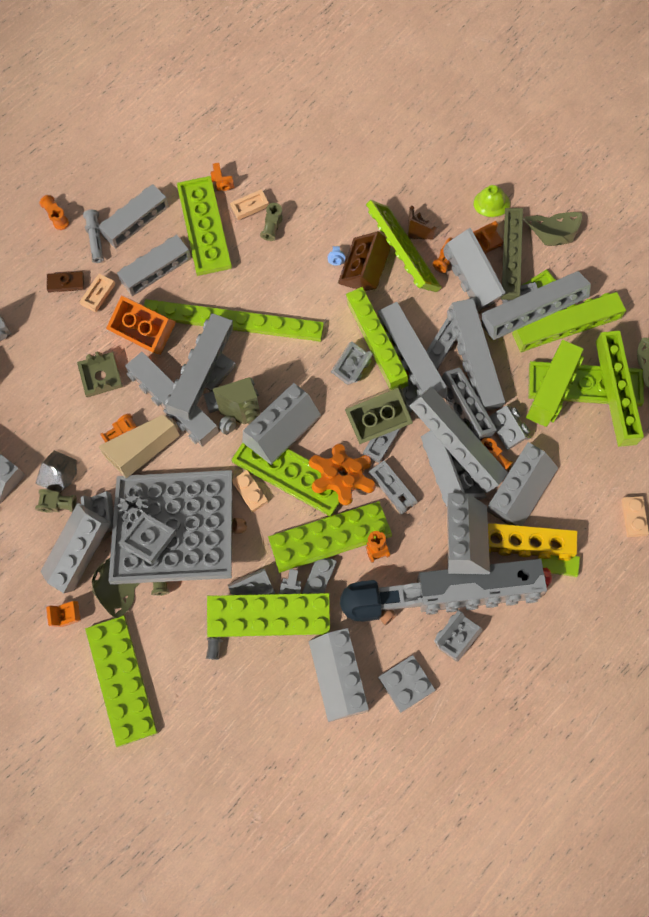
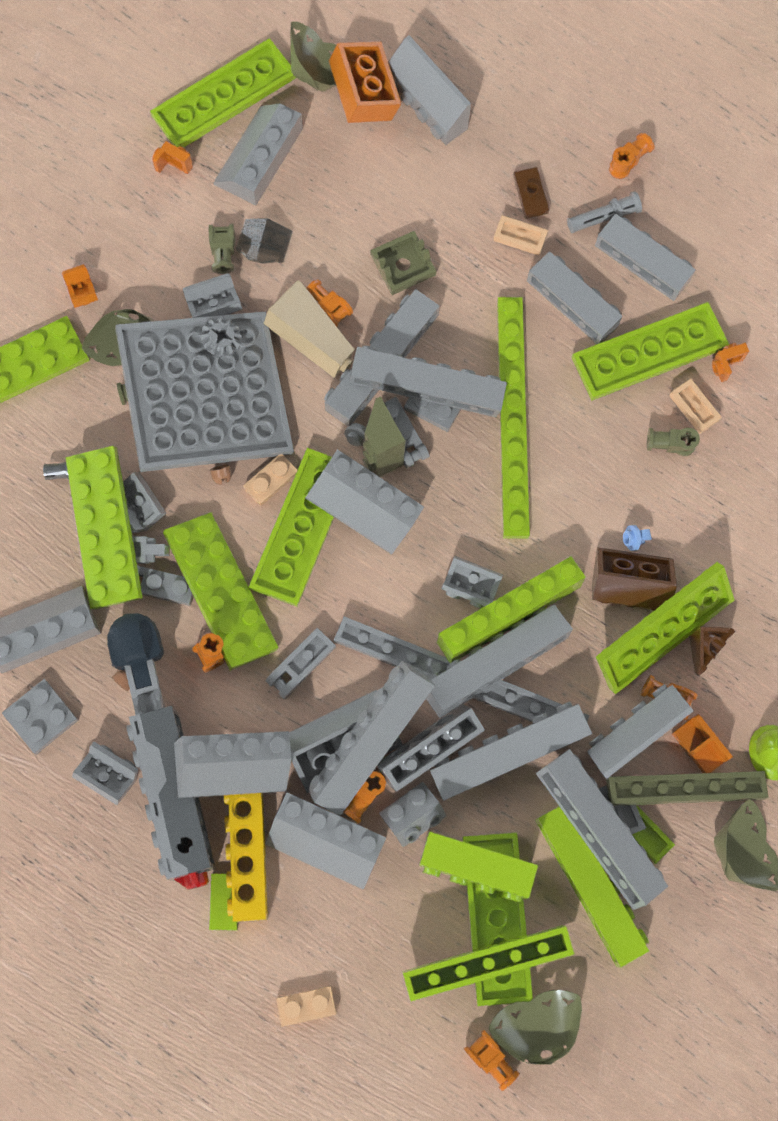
camera: 75 degrees right, 5 degrees up
(74, 549) = (159, 280): light grey slope -> none
(140, 325) = (476, 297): orange brick -> none
(147, 538) = (176, 359): light grey plate -> none
(342, 484) = (290, 597): orange plate -> none
(379, 414) = (397, 626): olive slope -> none

